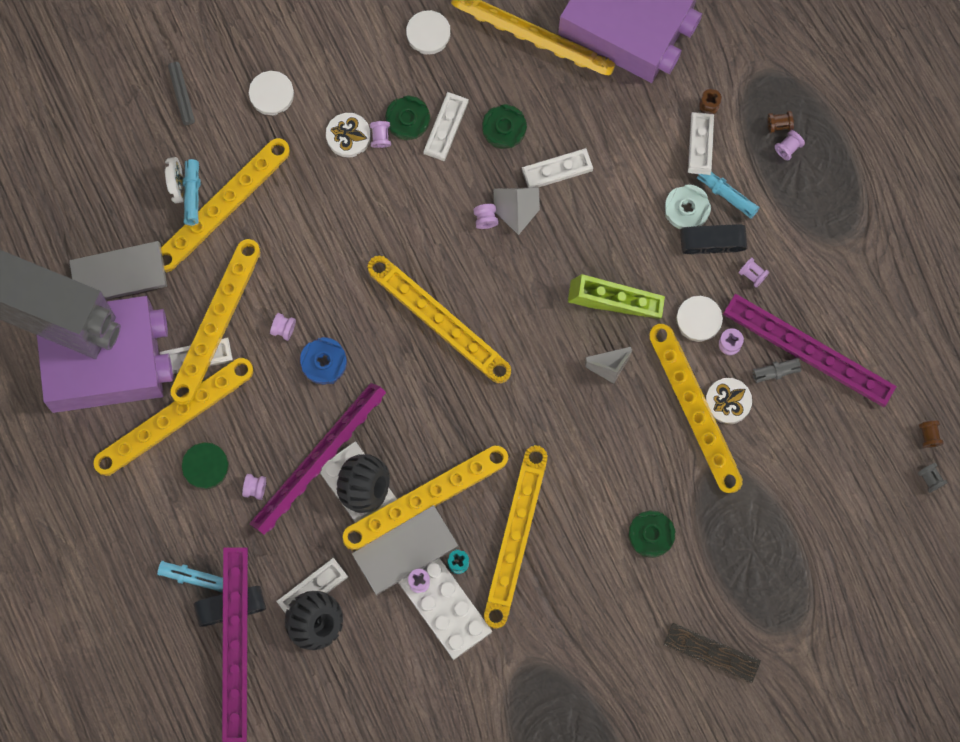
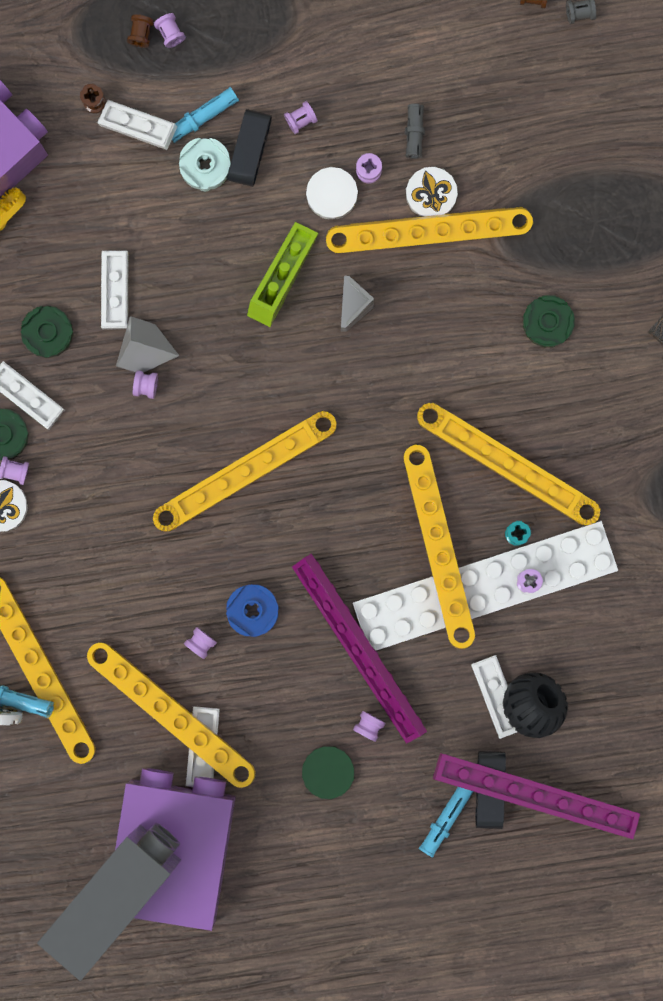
camera: 65 degrees left, 10 degrees up
(122, 270) = (81, 807): light grey tile -> none
(172, 417) = (263, 792): yellow plate -> none
(363, 483) = (405, 608): black wheel -> none
(404, 550) = (490, 585): light grey tile -> none
(809, 350) = (404, 89): magenta plate -> none

